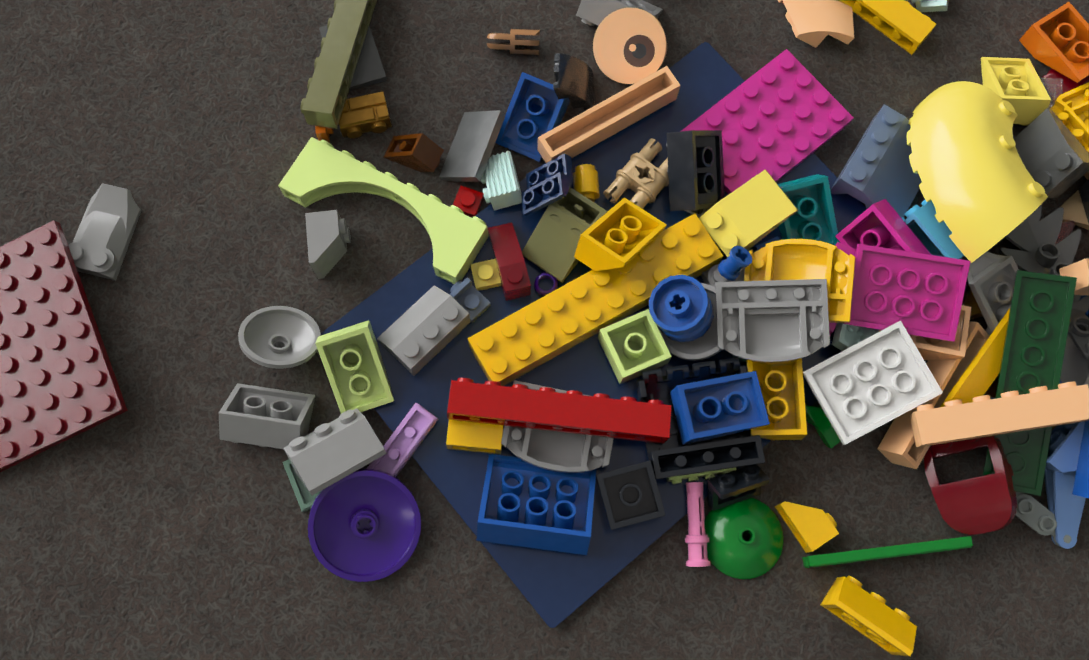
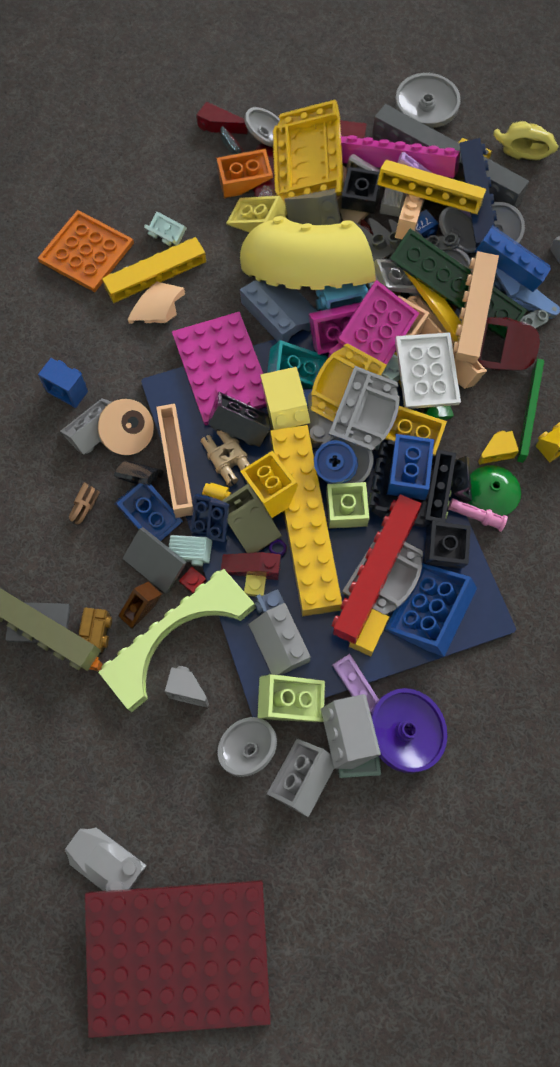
camera: 65 degrees left, 5 degrees down
(736, 261) = (316, 418): blue bush -> none

